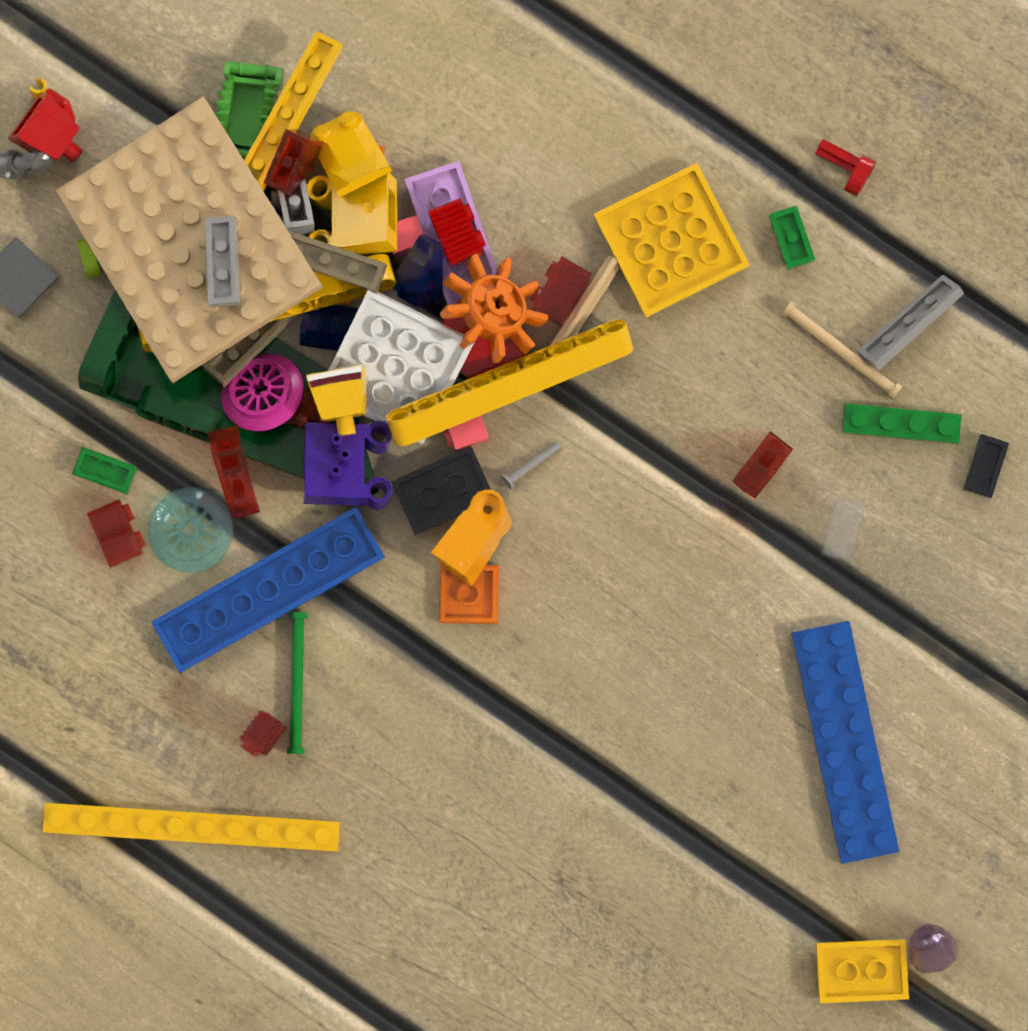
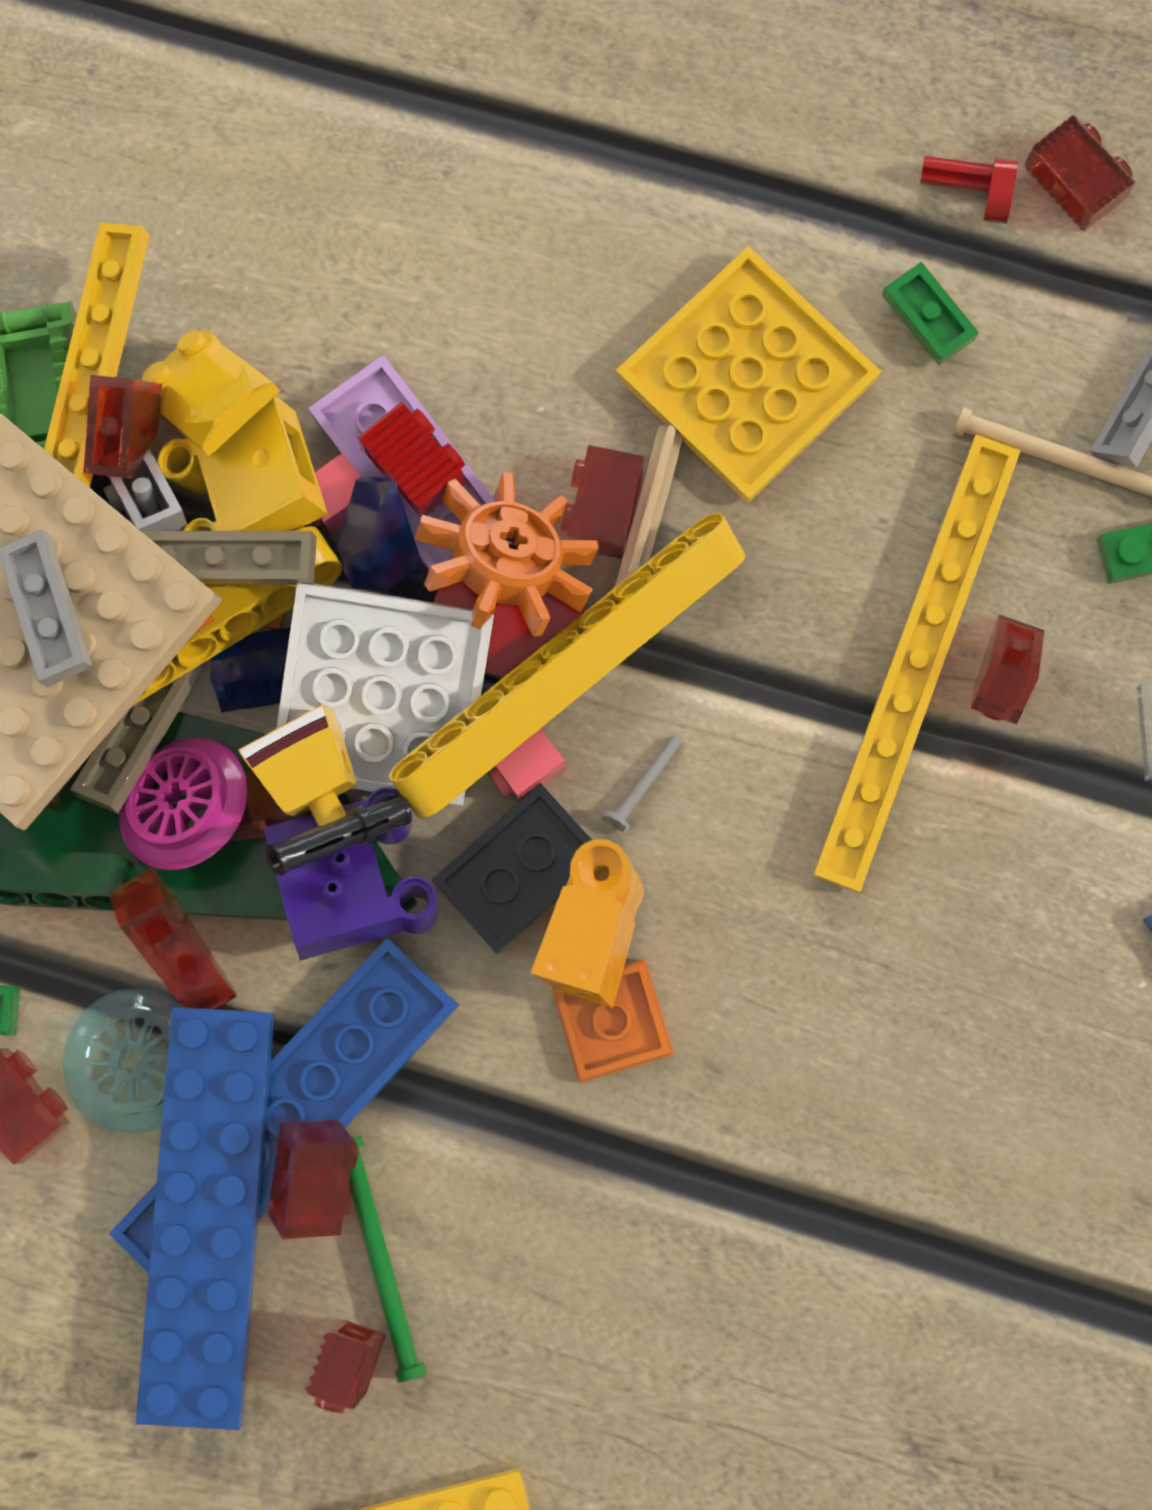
camera: 10 degrees left, 5 degrees down
(209, 628) = (205, 1219): none -> blue plate
(274, 627) = (311, 1179): none -> clear red brick
(358, 440) = (358, 827): none -> black pin
(712, 444) = (916, 665): none -> yellow plate
(911, 179) = (1080, 172): none -> clear red brick

